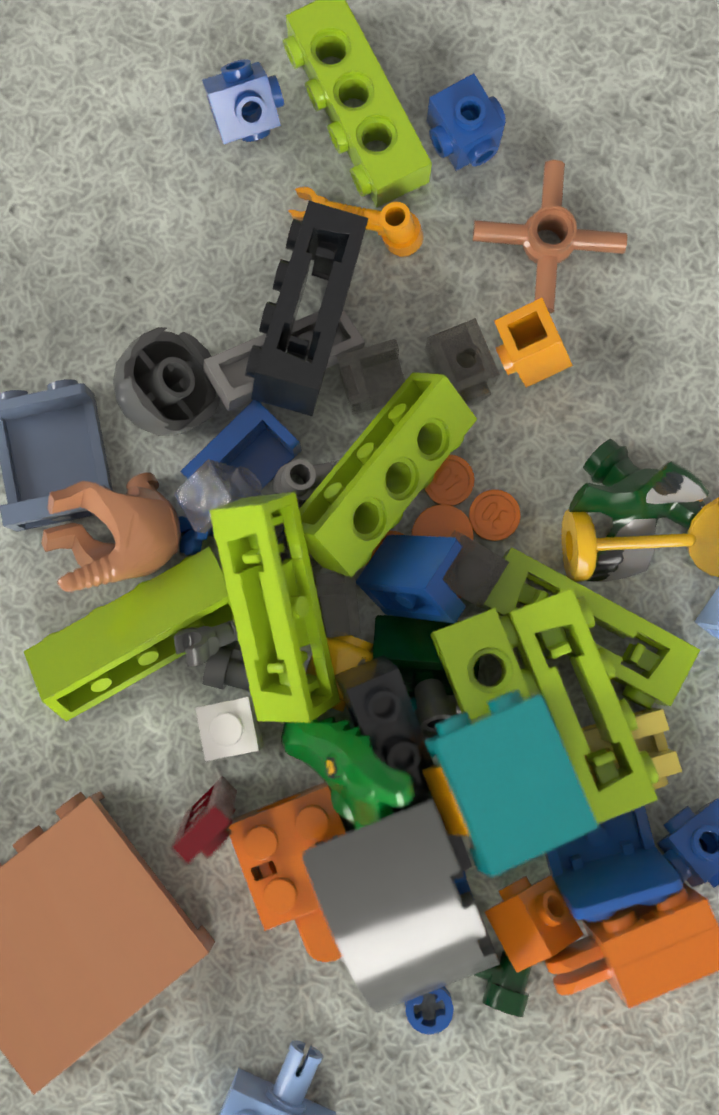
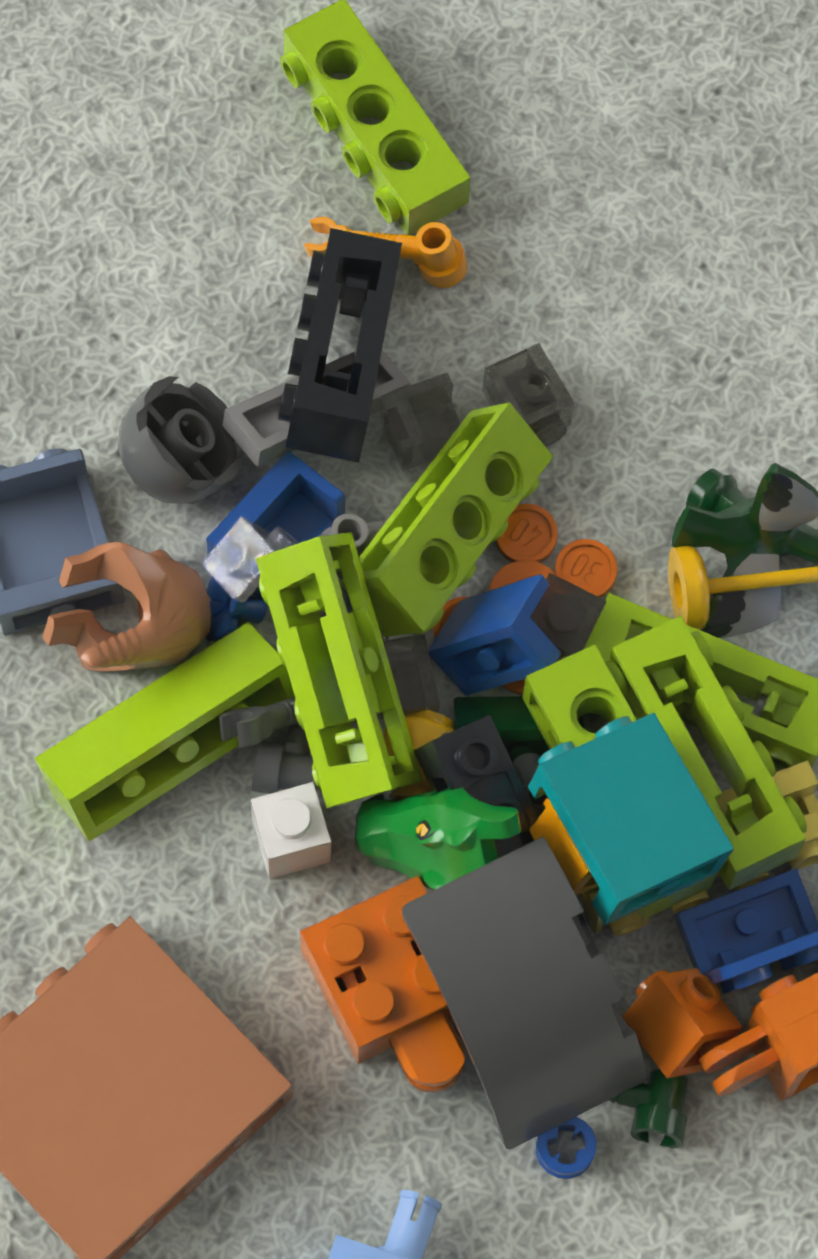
camera: 10 degrees left, 15 degrees down
(206, 822) = (280, 914): dark red plate -> none
(244, 101) = (241, 127): brick -> none
(465, 123) = (505, 133): blue brick -> none
(531, 344) = (609, 368): light orange brick -> none
(556, 219) = (616, 272): nougat bar -> none

